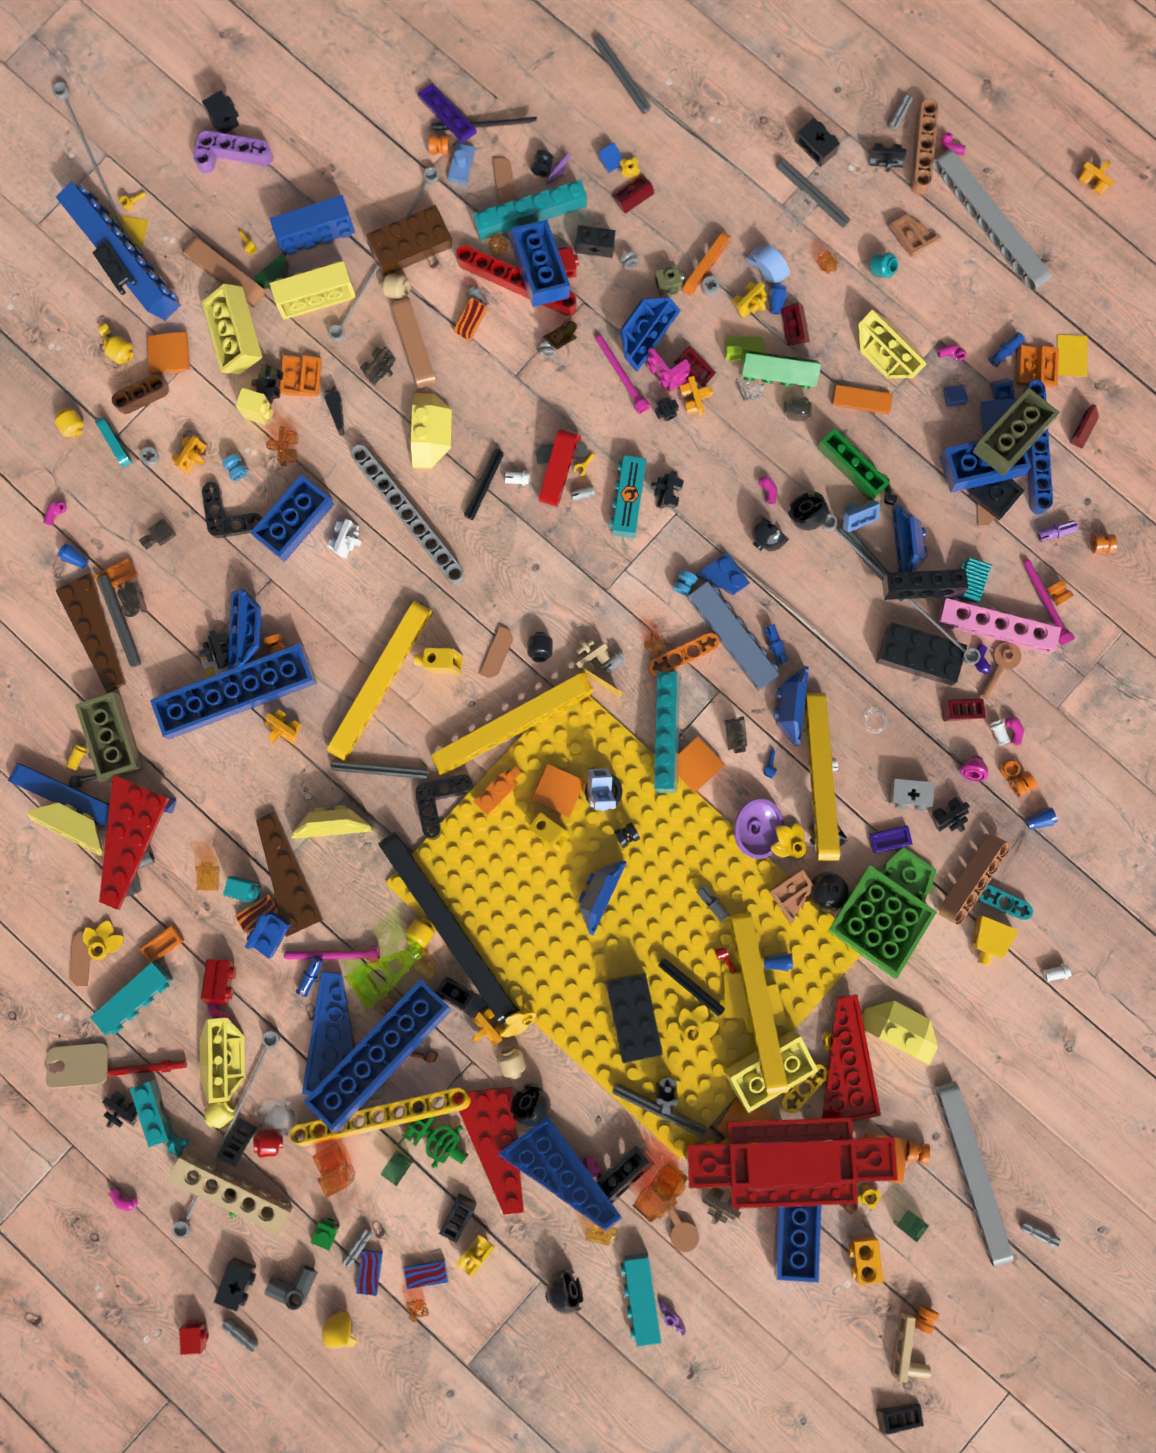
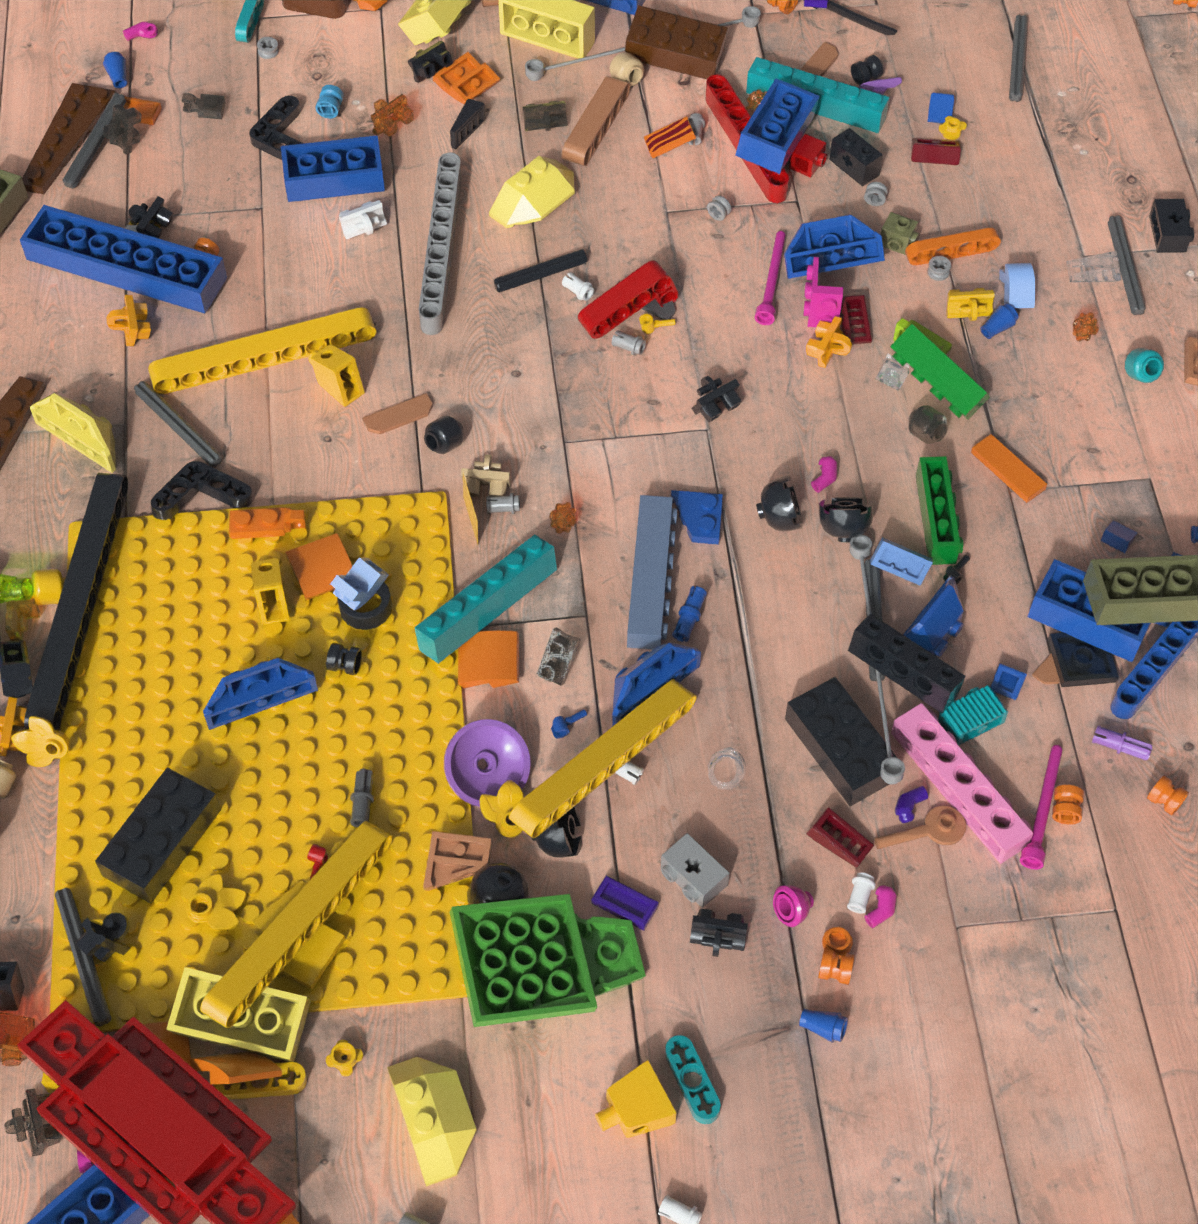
camera: 40 degrees right, 25 degrees down
(192, 448) = (309, 64): light orange hips -> none
(243, 628) = (192, 218): blue wedge -> none
(254, 406) = (396, 65): light yellow brick -> none
(461, 163) = (790, 26): medium blue tile -> none
(512, 723) = (344, 476): yellow beam -> none
(562, 335) = (739, 199): dark brown hinge -> none
(629, 496) = (670, 376): teal brick -> none
(666, 409) = (787, 331): black gear -> none
(682, 652) = (586, 546): orange beam -> none
(685, 583) = (651, 486): dark azure wheel -> none
(691, 987) = (251, 861): black axle -> none
(781, 961) = (371, 915): blue cone -> none
(795, 324) = (999, 358): dark red slope -> none
(799, 1100) = (236, 1067): none -> orange slope
(850, 1077) = (325, 1103): red wing -> none
(888, 348) = (1080, 435): light yellow wedge -> none
(953, 351) = (1155, 495): dark pink arm -> none
(970, 540) = (1008, 681): none -> blue slope
(974, 879) = (664, 1012): nougat beam -> none

